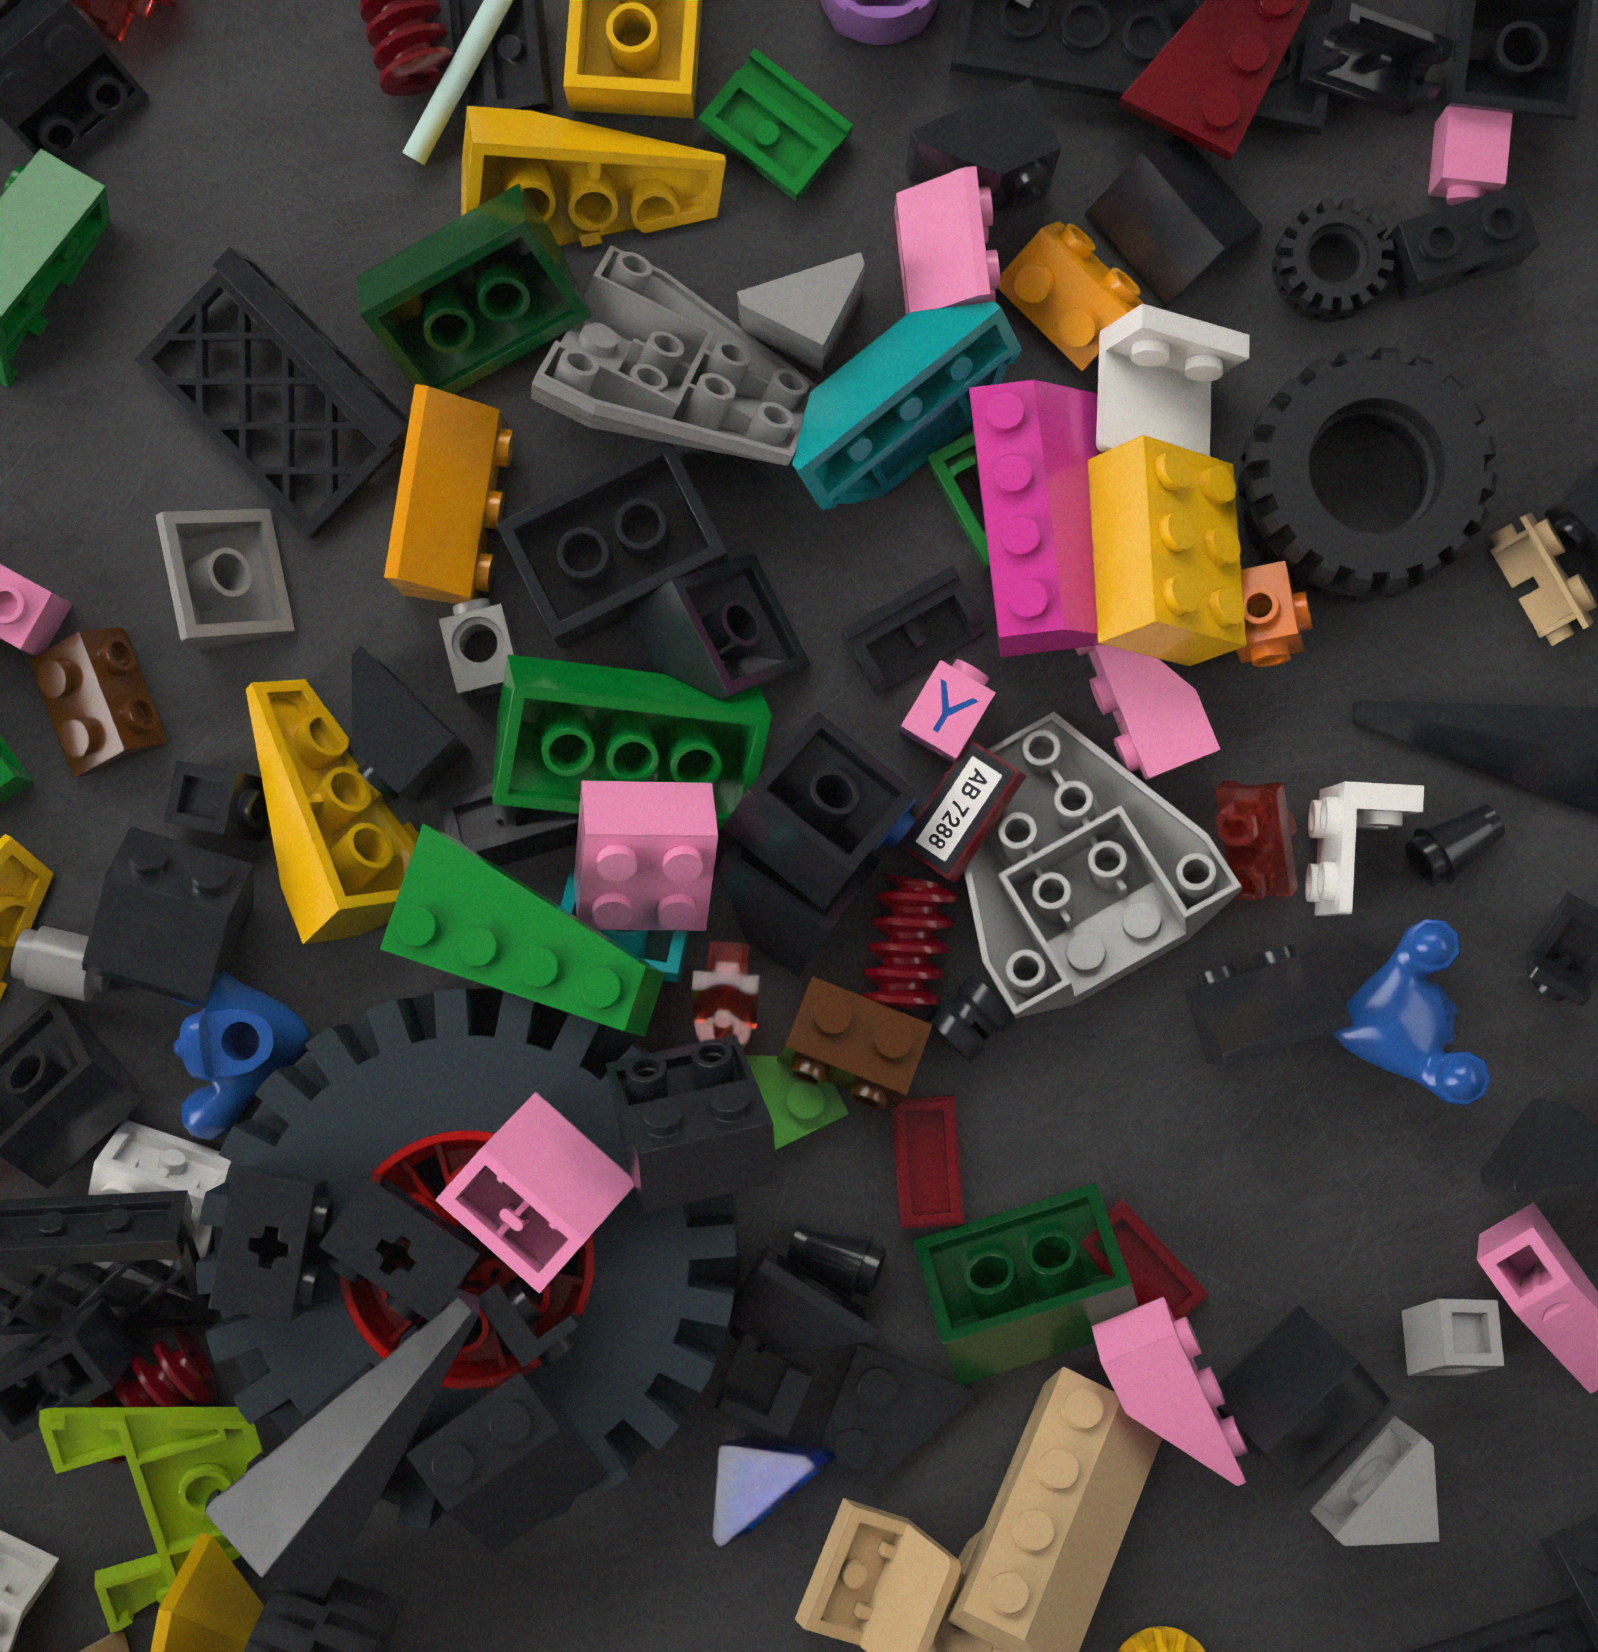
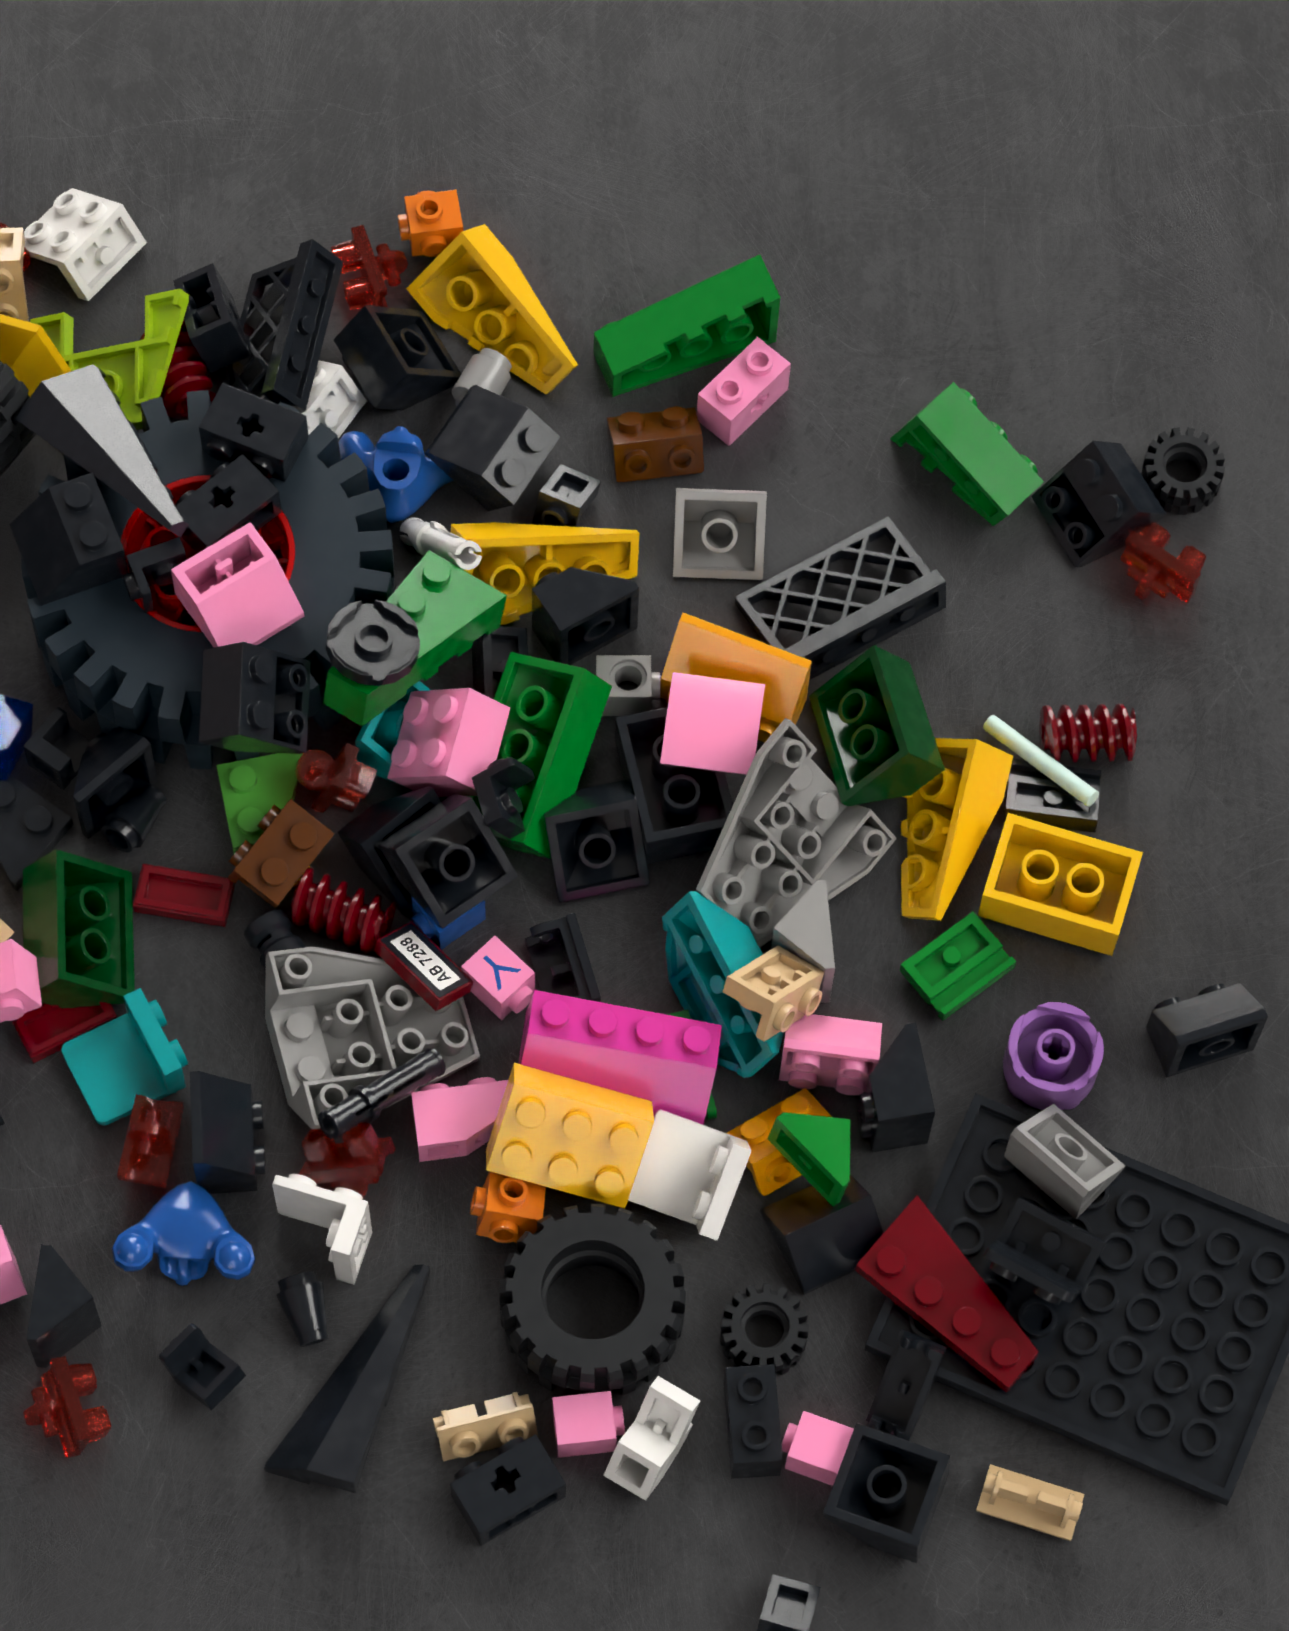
camera: 100 degrees right, 20 degrees down
(336, 961) = (437, 539): none -> white pin
(538, 499) = (712, 723): none -> bright pink slope
(567, 978) = (373, 643): none -> tile
(725, 761) = (498, 797): none -> black bracket
(907, 324) = (778, 988): none -> tan bracket
(1108, 221) = (816, 1149): none -> green slope
(1188, 1169) = (126, 1060): none -> teal bracket
(1193, 824) = (368, 1101): none -> black pin
(1294, 1102) = (150, 1141): none -> clear red hips
(1521, 362) = (652, 1439): none -> white brick
(1523, 446) = (586, 1424): none -> bright pink brick

